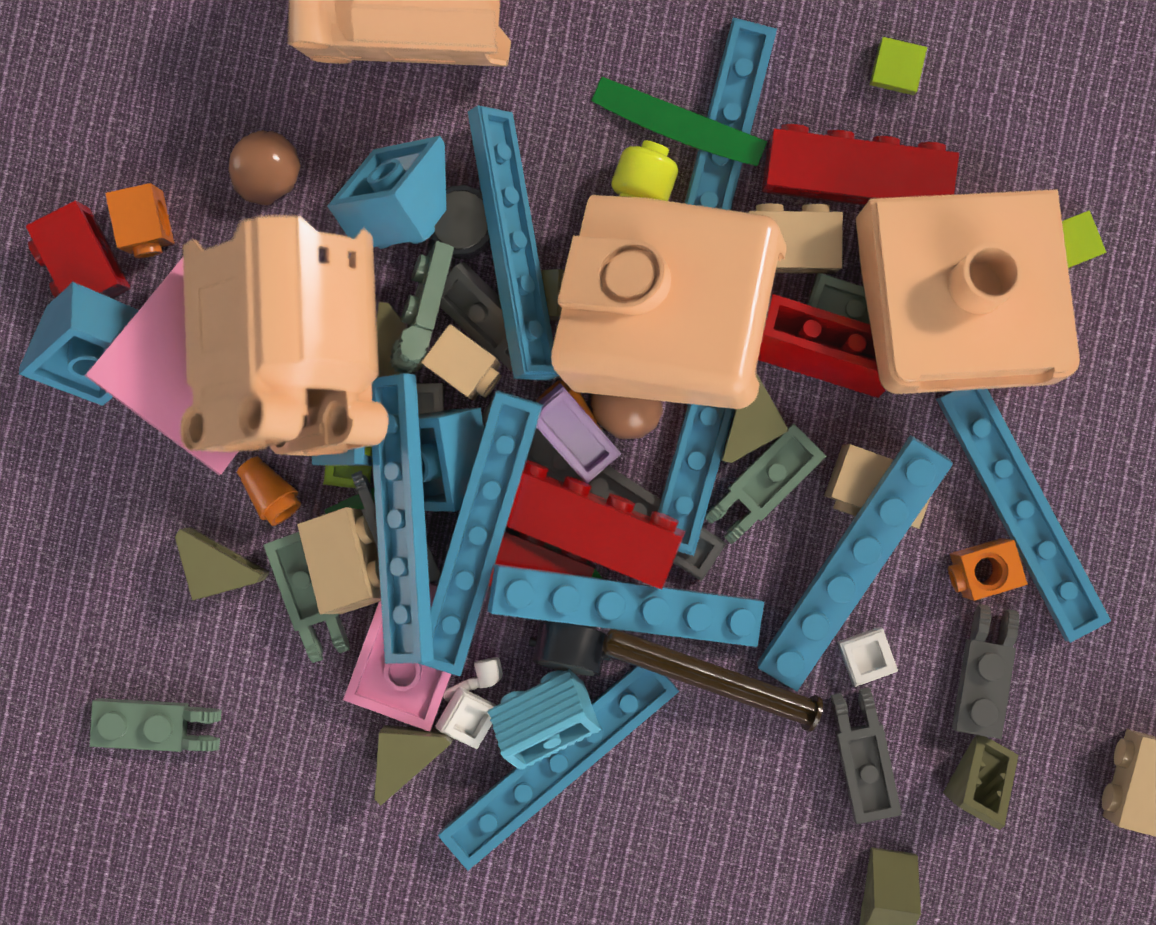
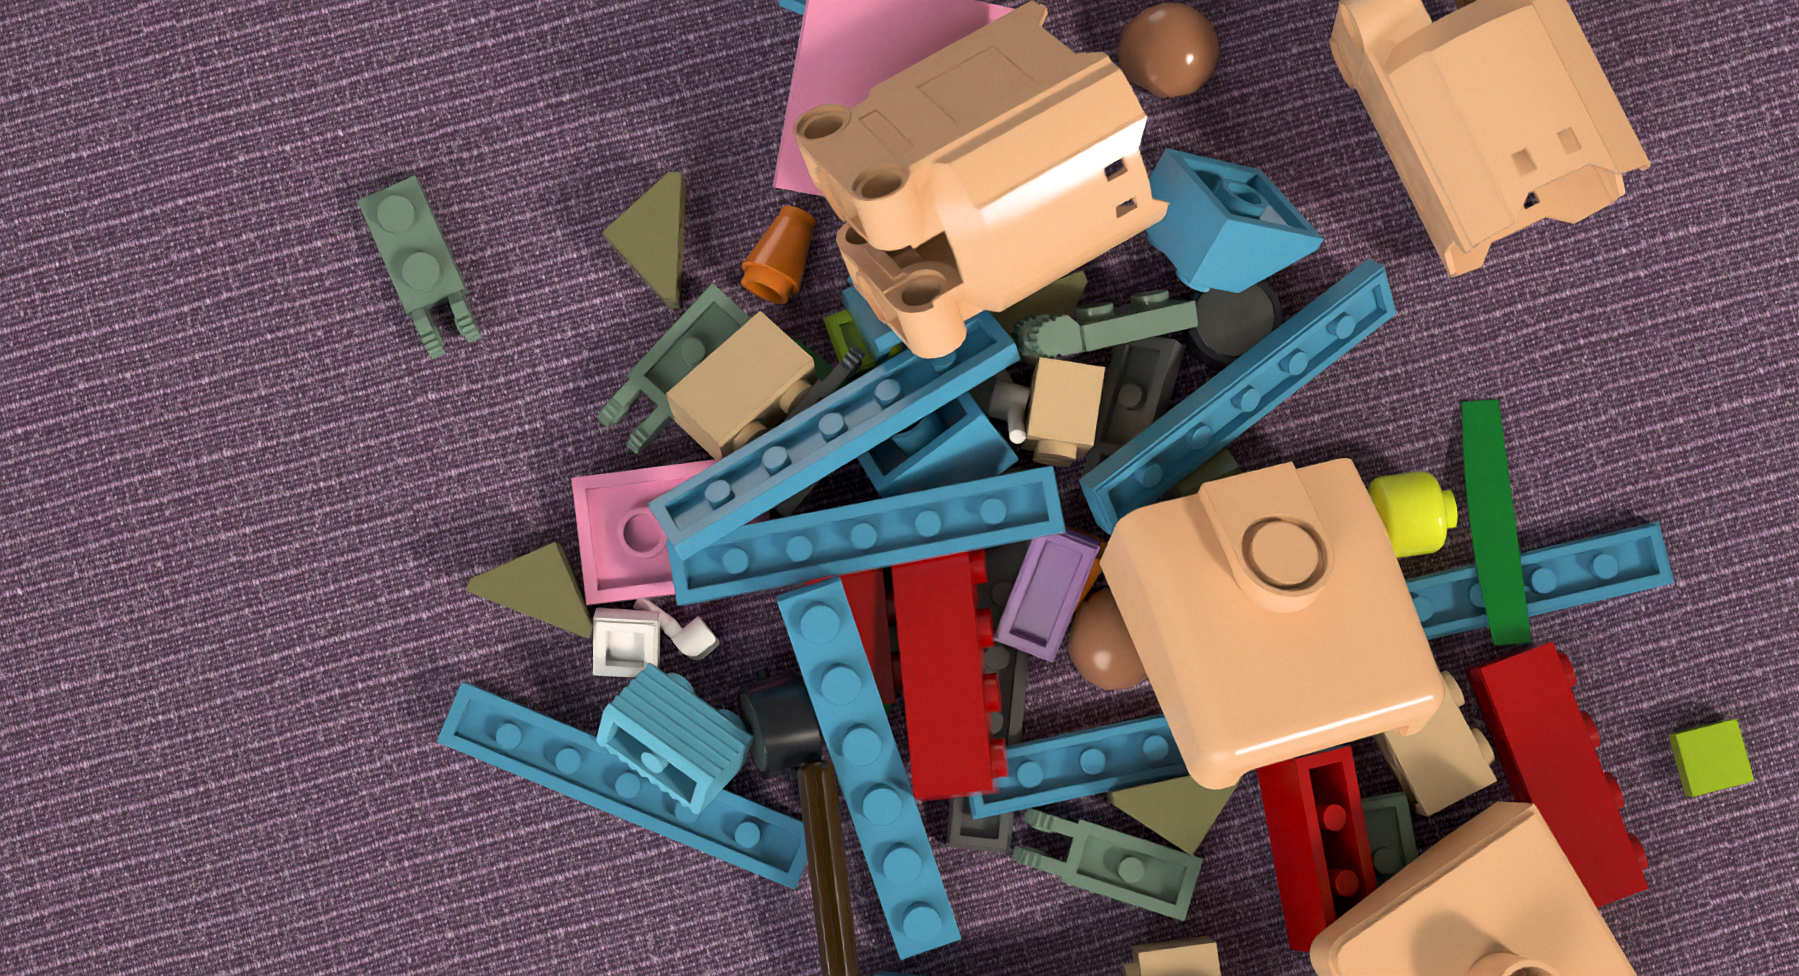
camera: 55 degrees right, 5 degrees down
(441, 395) = (1009, 404): none -> white hand

